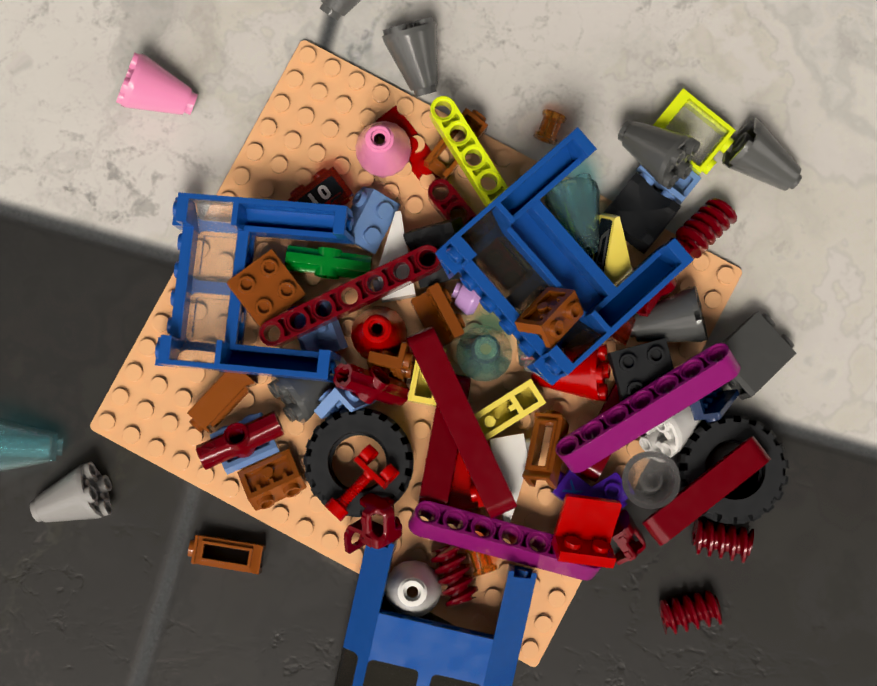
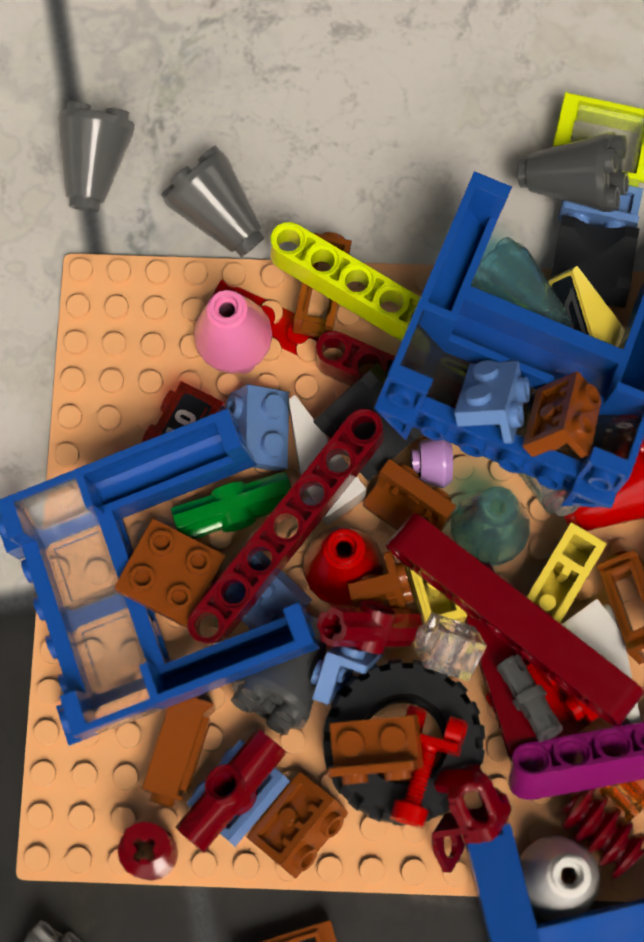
camera: 25 degrees left, 10 degrees down
(165, 445) = (131, 854): none -> dark red piece
(334, 460) = (376, 747): none -> dark orange bracket
(414, 419) = (449, 646): none -> clear brick
(446, 475) = (529, 698): none -> dark grey pin
(514, 281) = (493, 396): none -> medium blue bracket
(549, 126) = (426, 215): clear orange bush -> none

